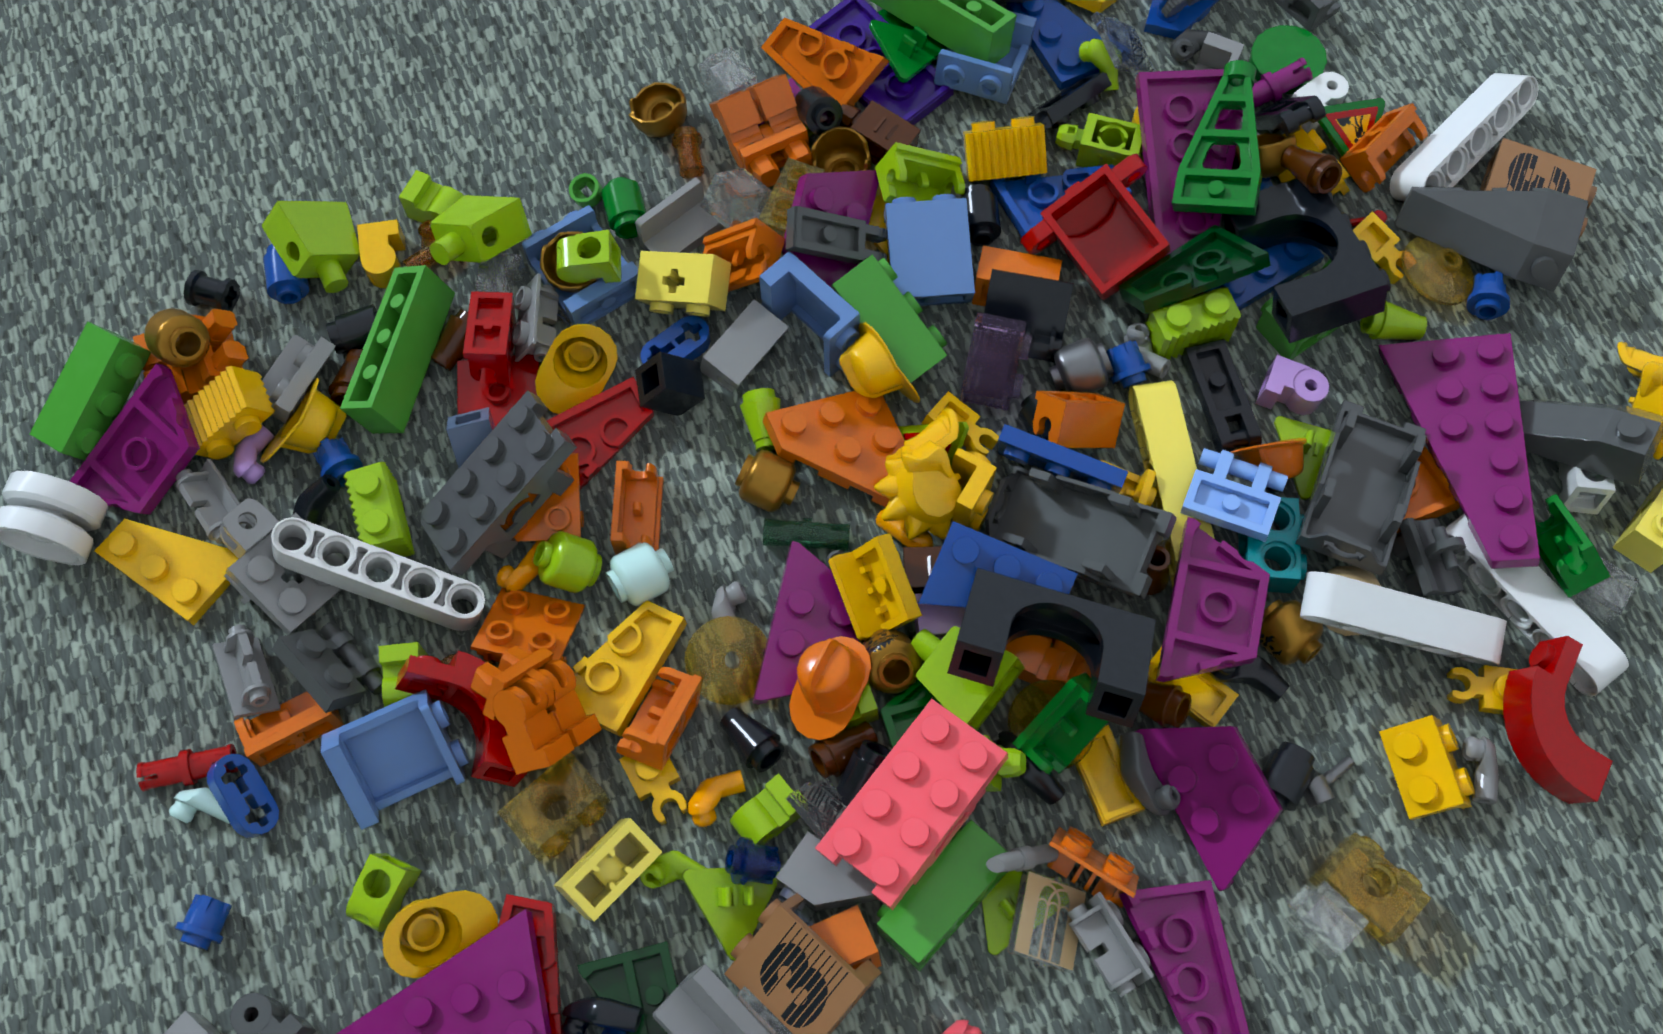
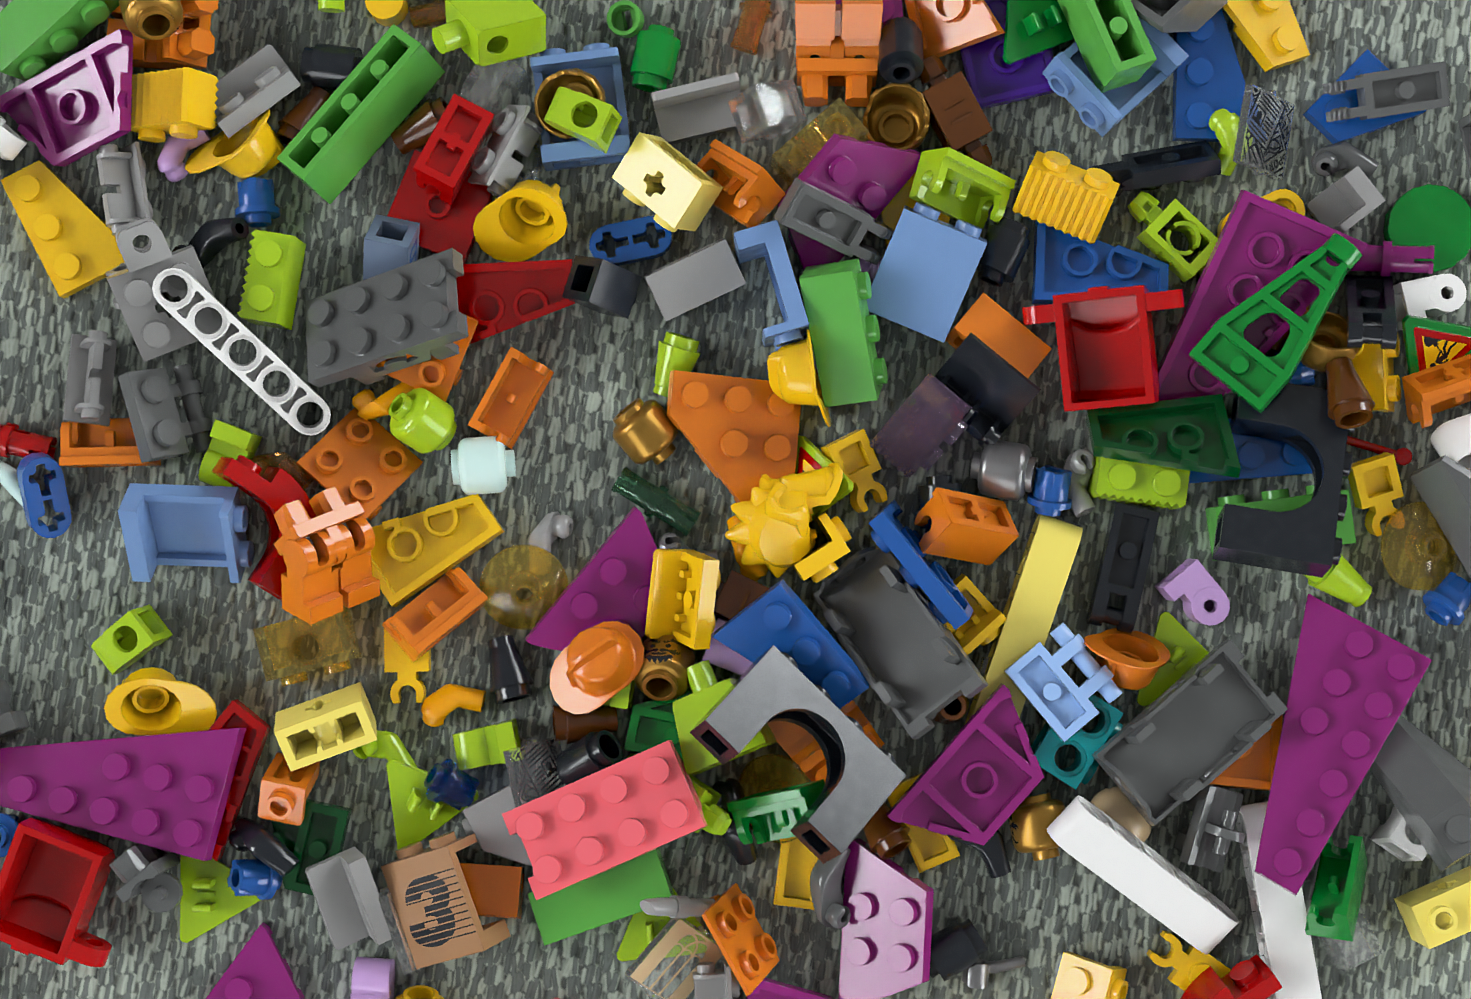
camera: 30 degrees right, 20 degrees up
(598, 952) = (285, 792): none -> orange bracket

